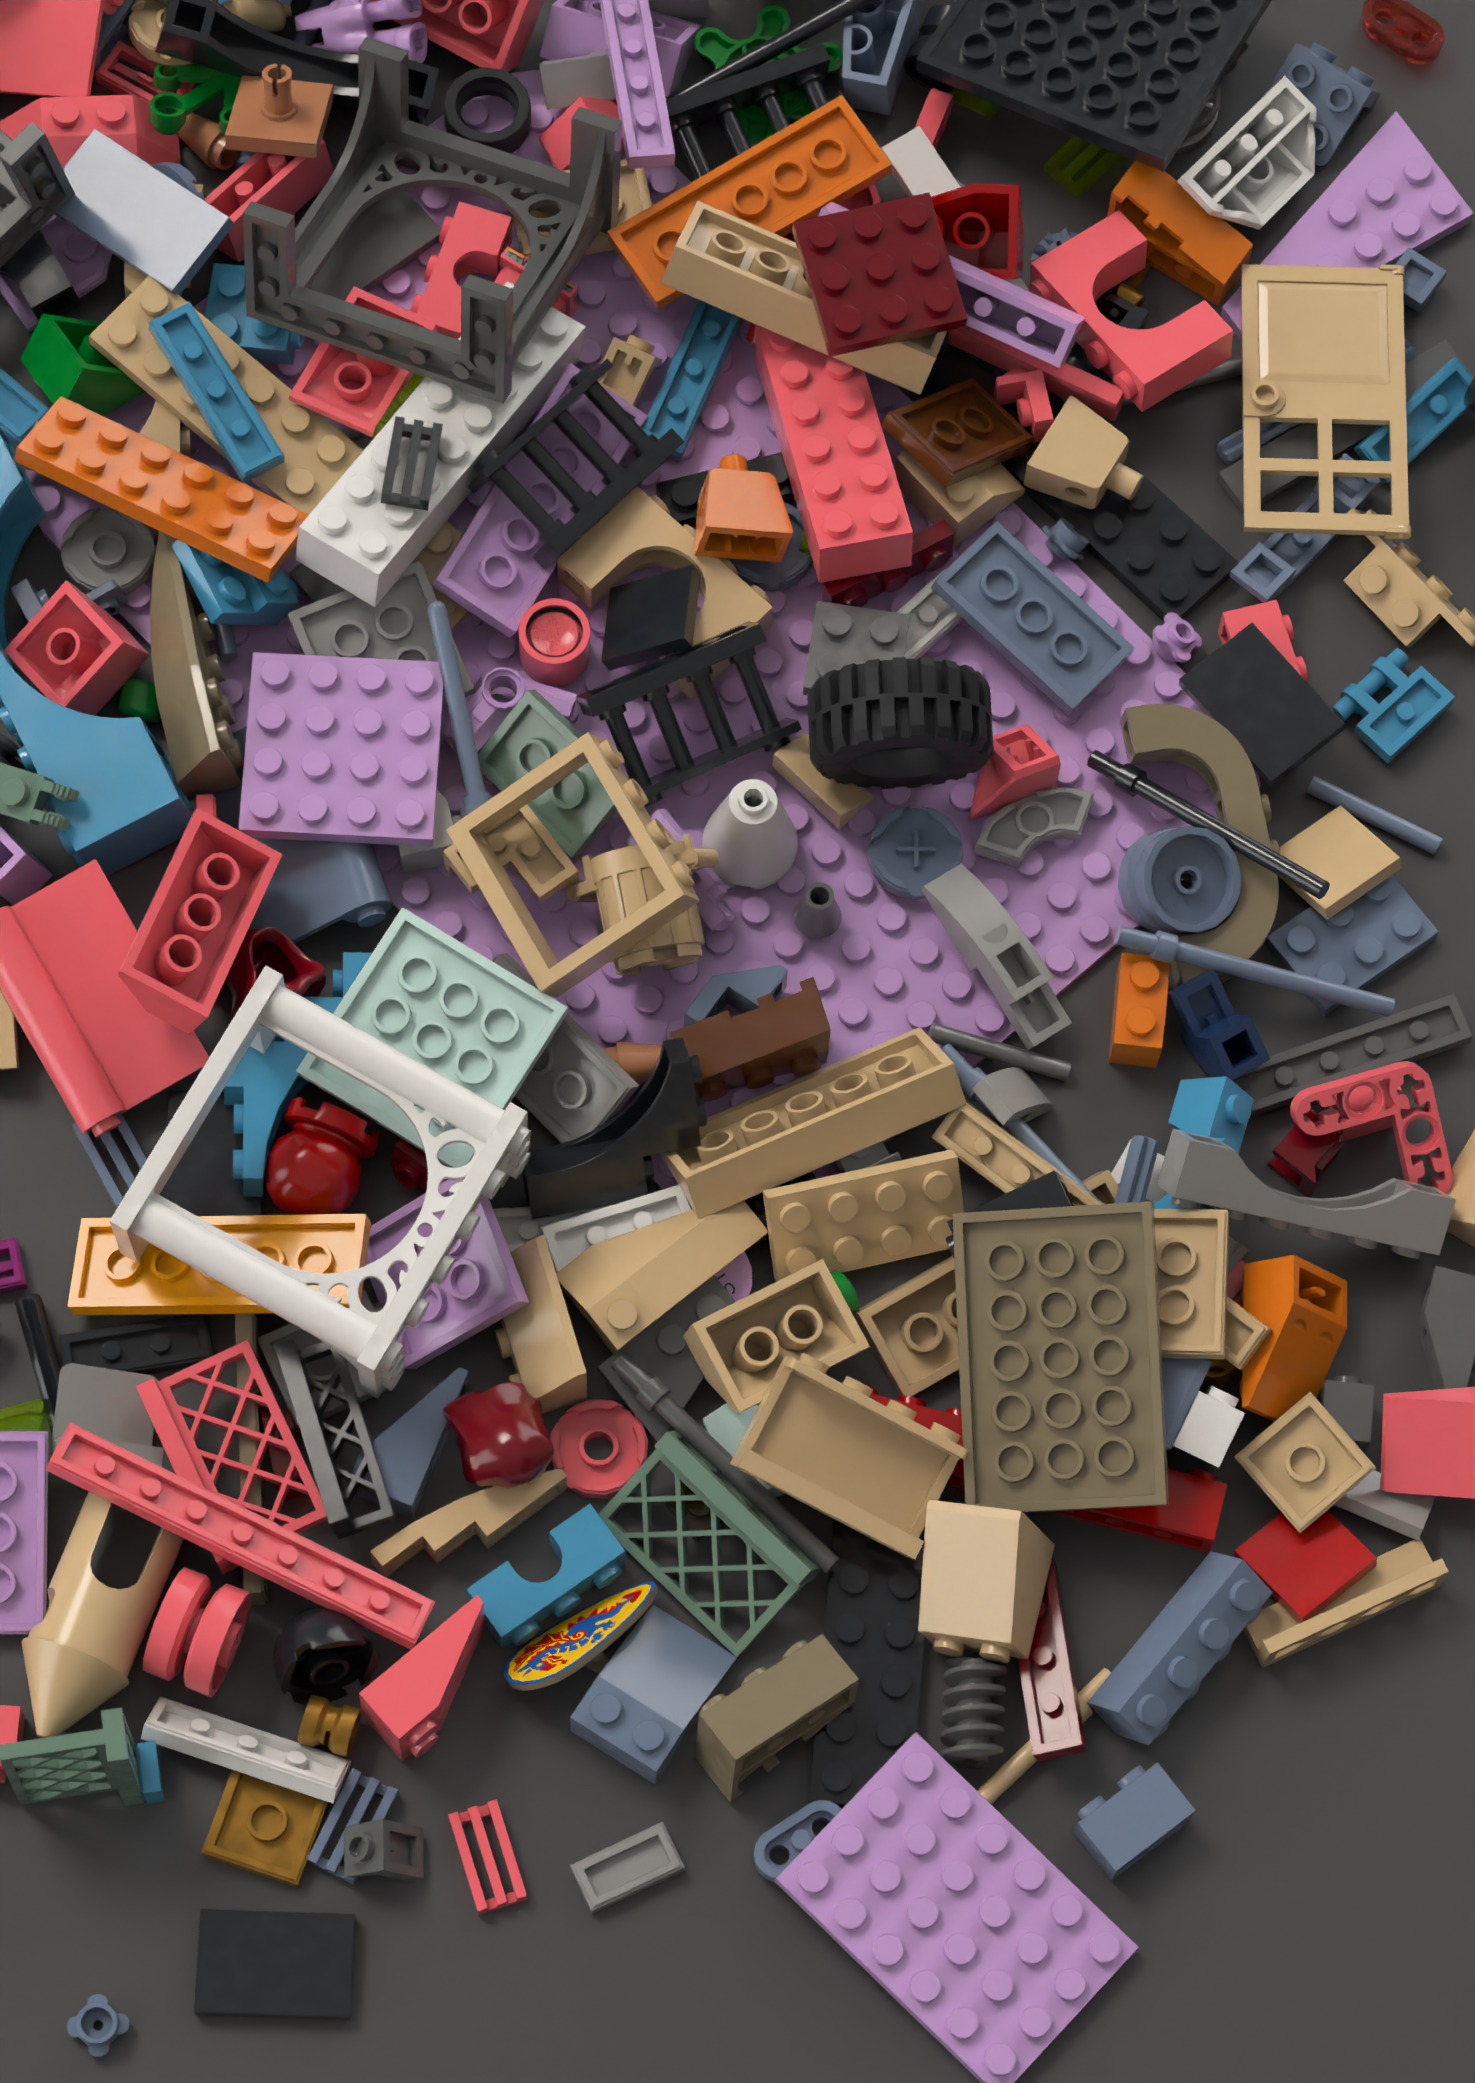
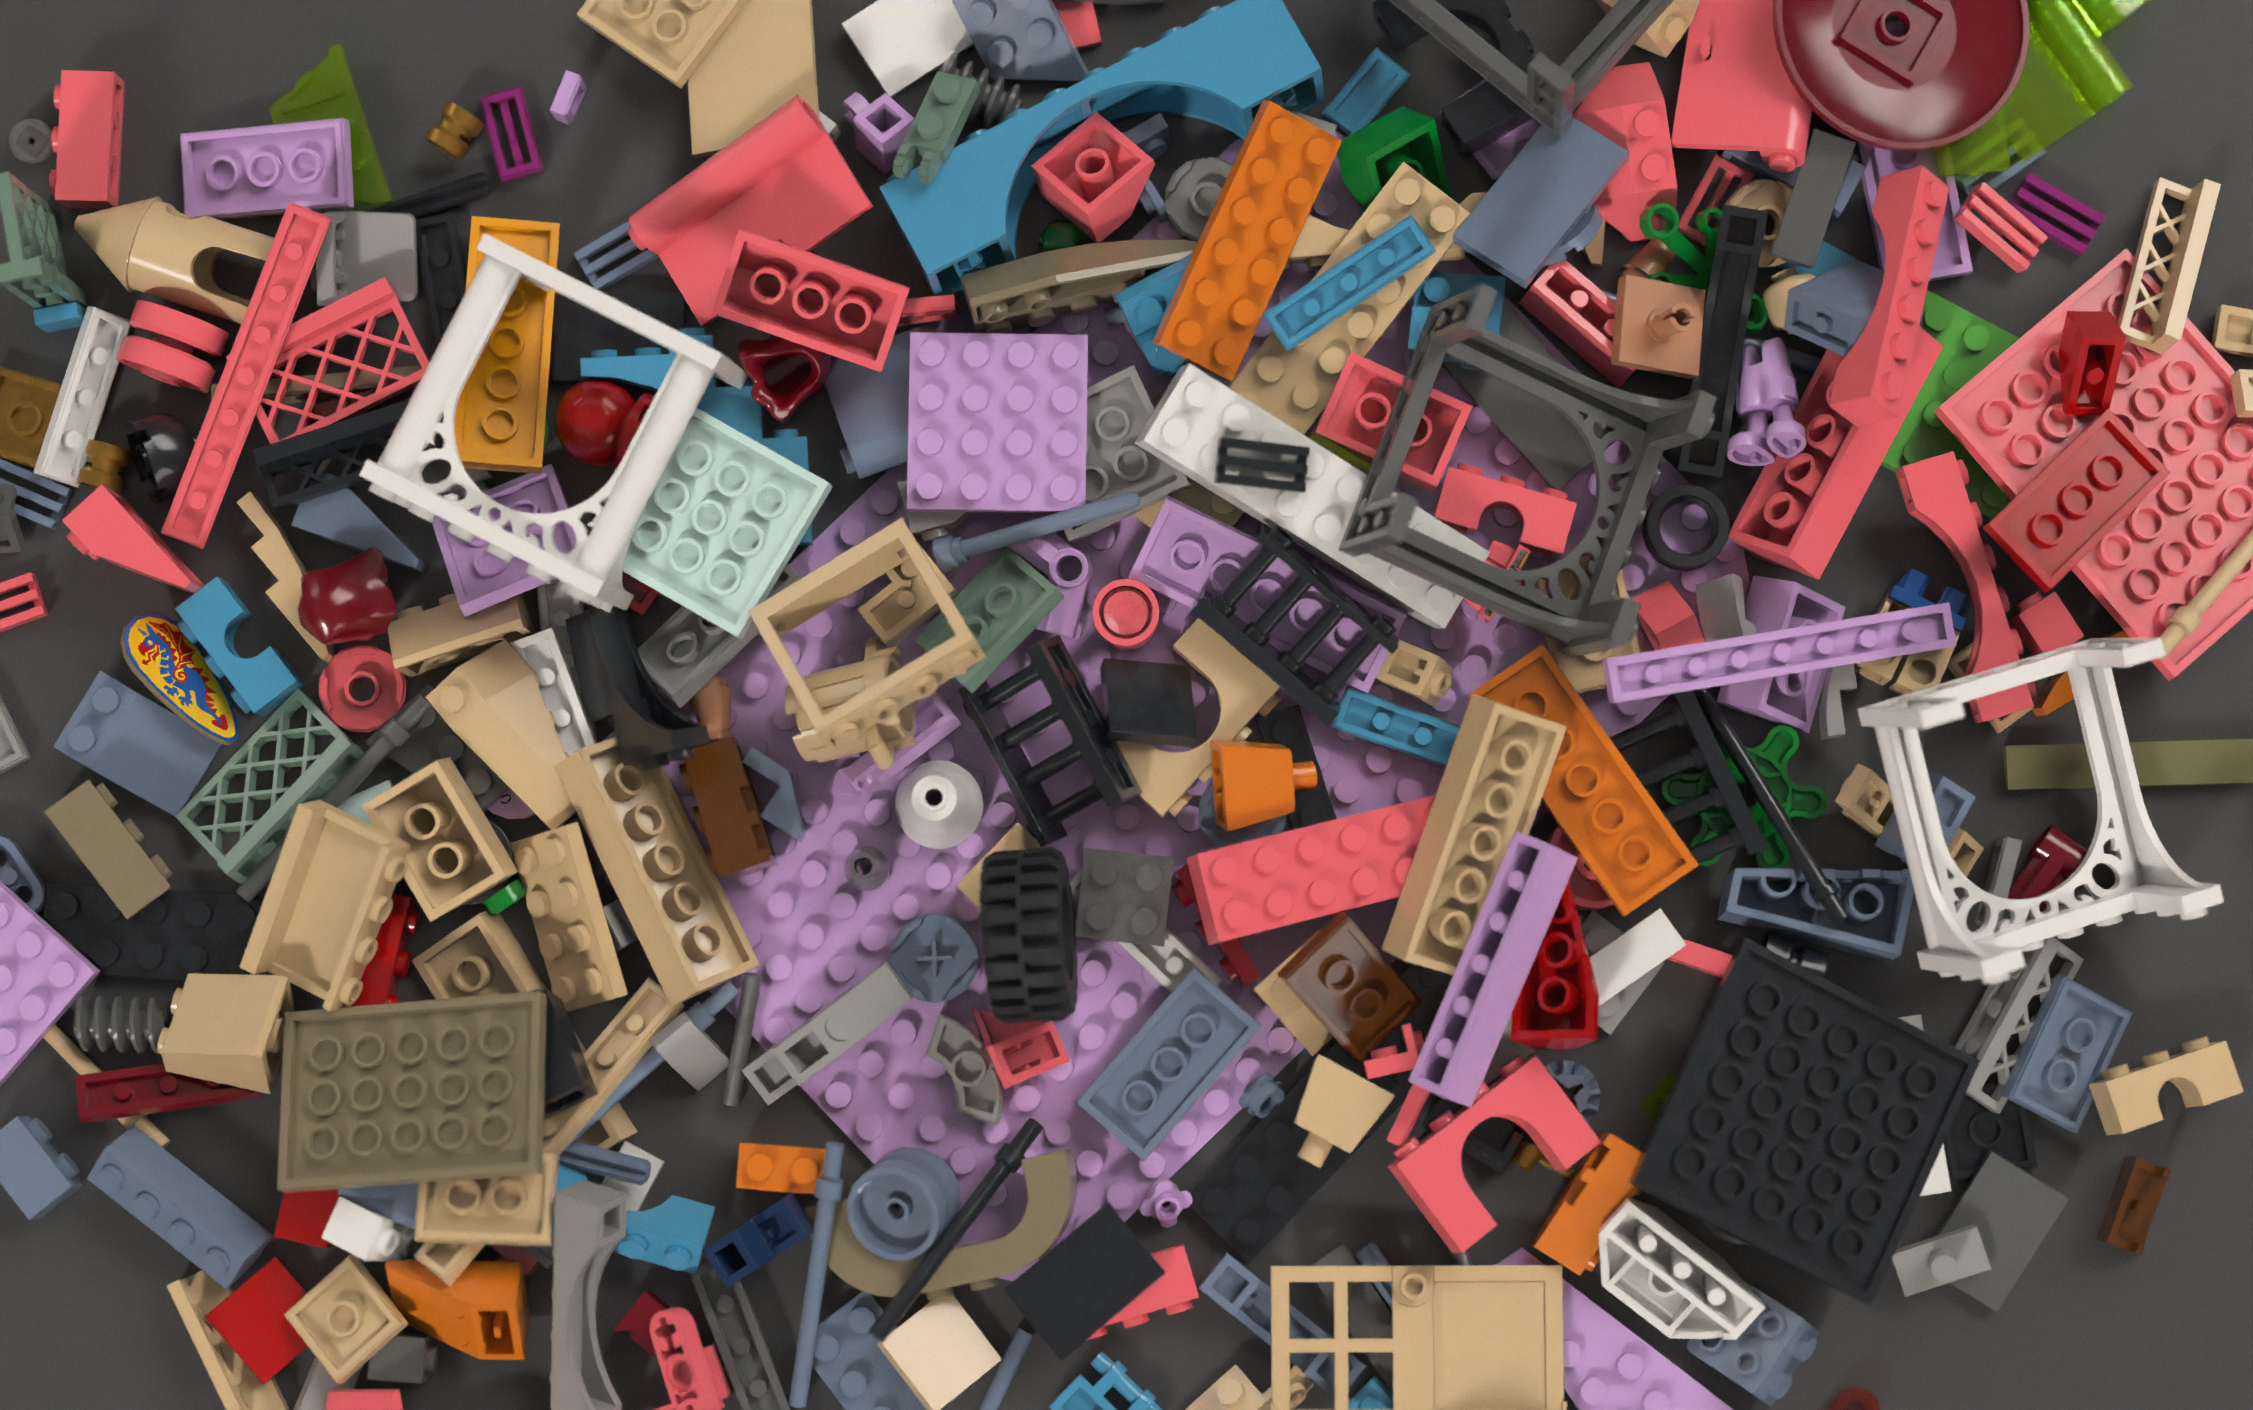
camera: 95 degrees right, 15 degrees up
(879, 274) = (1479, 901): dark red plate -> none

